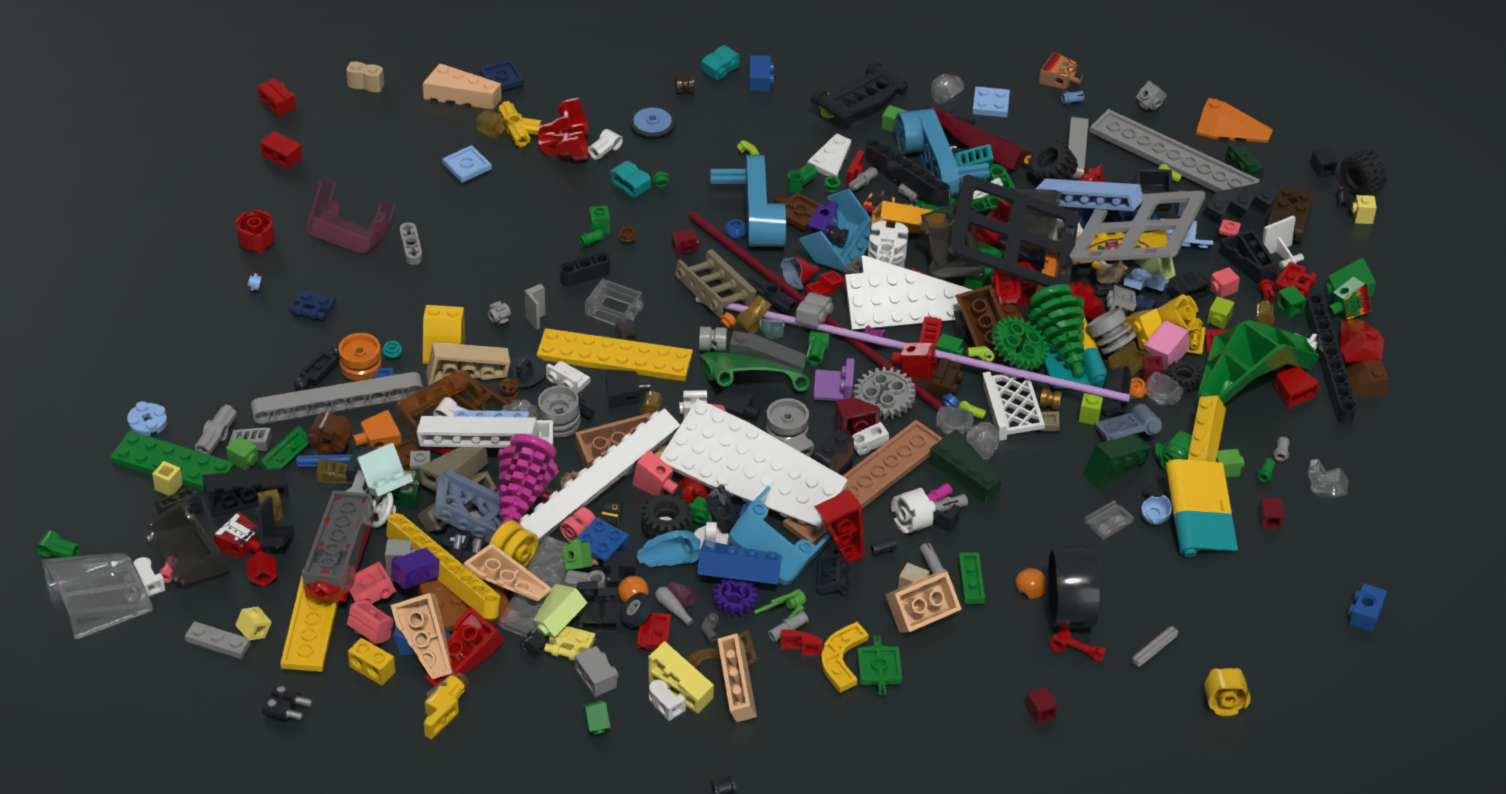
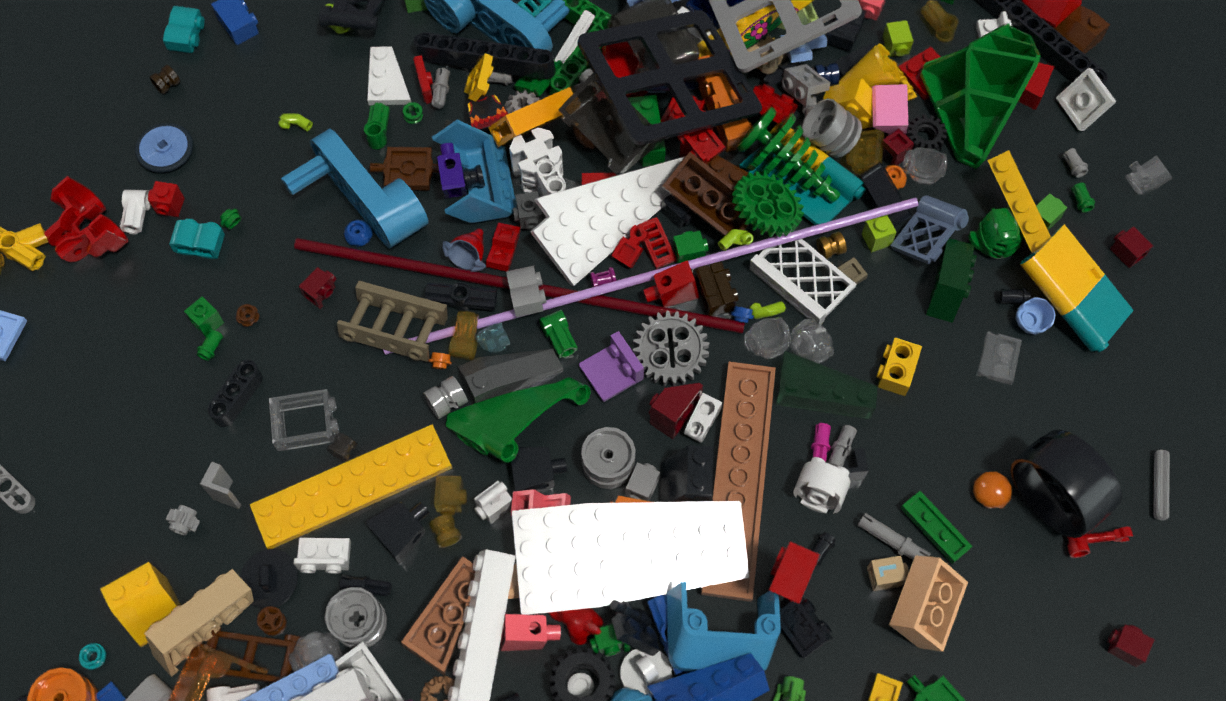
camera: 35 degrees left, 20 degrees up
(629, 147) = (166, 199): none -> red brick
(671, 387) = (449, 494): none -> clear yellow brick
(891, 183) = (477, 79): none -> yellow plate
(907, 327) = (629, 249): none -> red plate
(1032, 485) = (901, 367): none -> yellow brick
(1325, 414) = (1086, 99): none -> white tile

